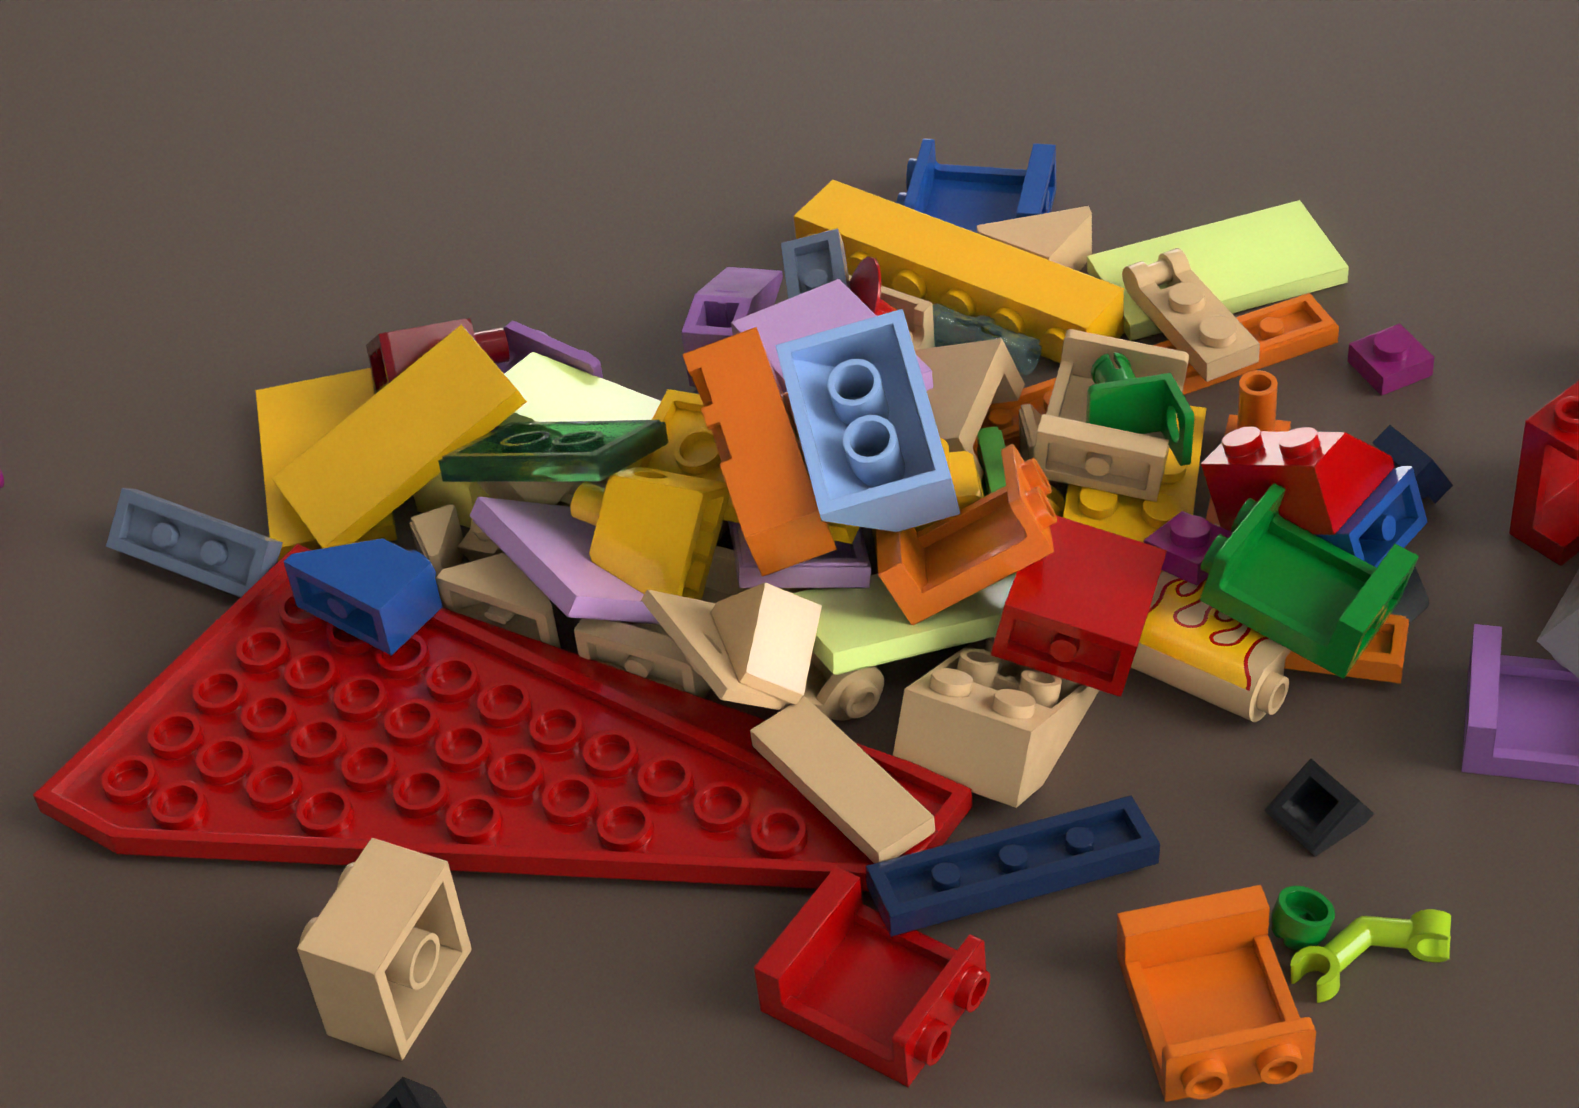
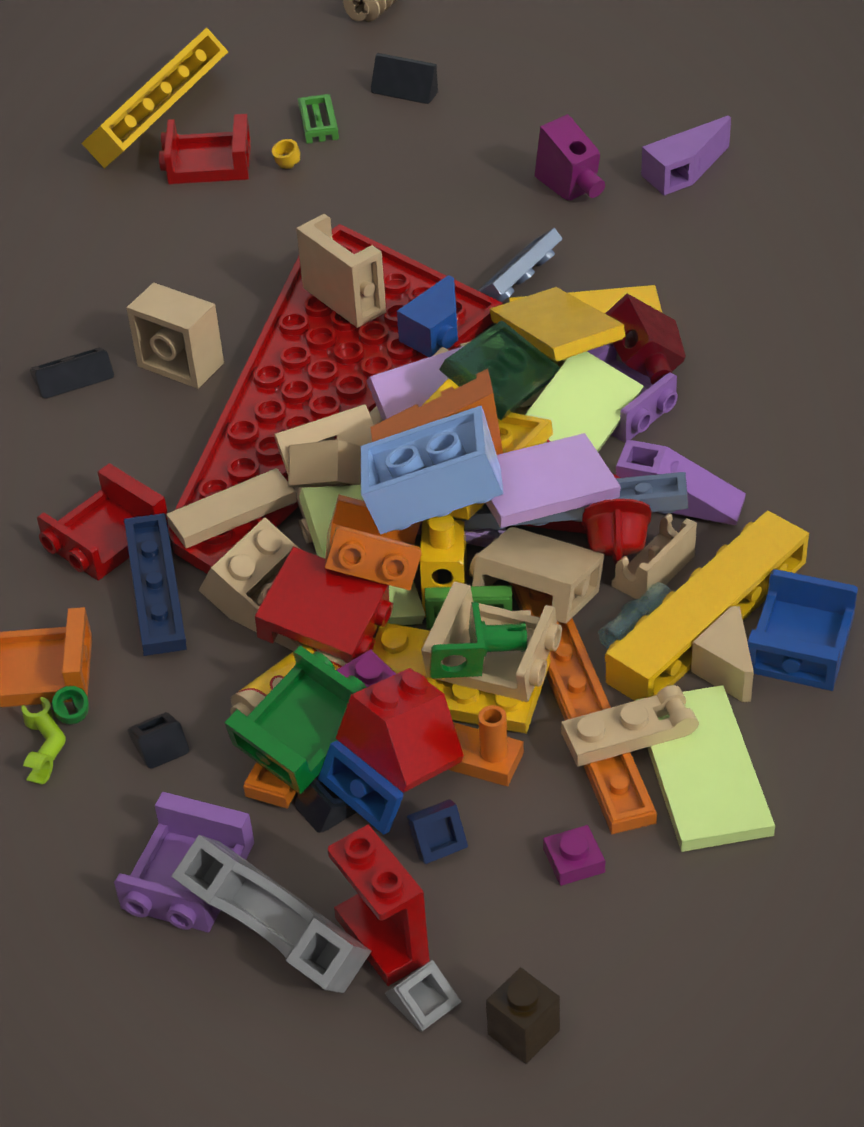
camera: 95 degrees right, 0 degrees up
(258, 711) = (339, 278): none -> tan panel

